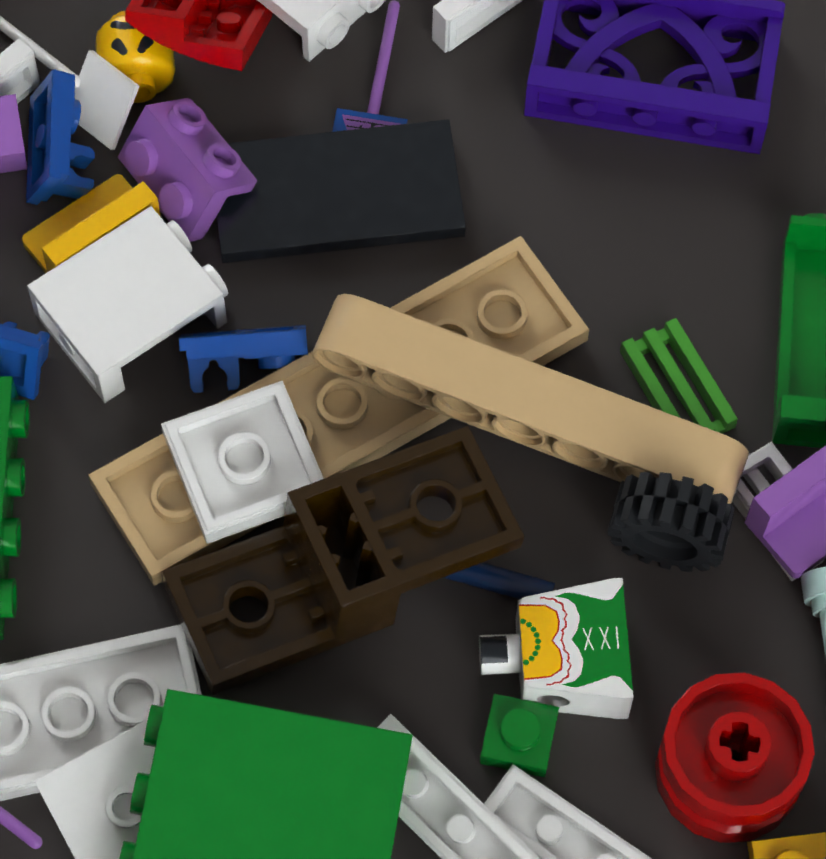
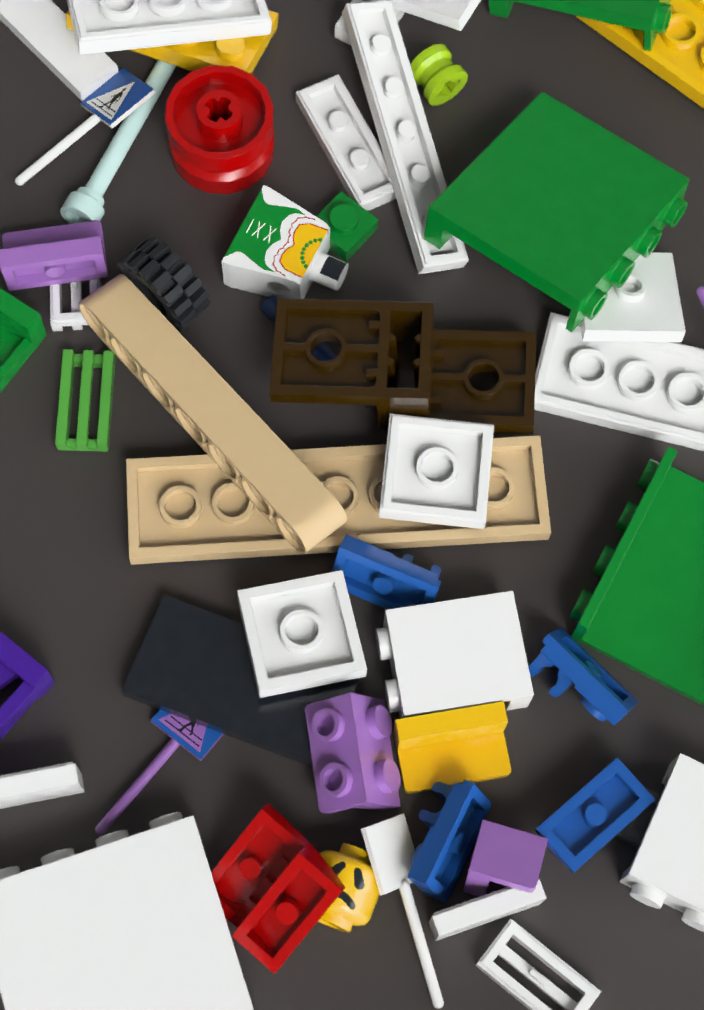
camera: 155 degrees left, 5 degrees up
(299, 240) = (301, 633): none -> white plate

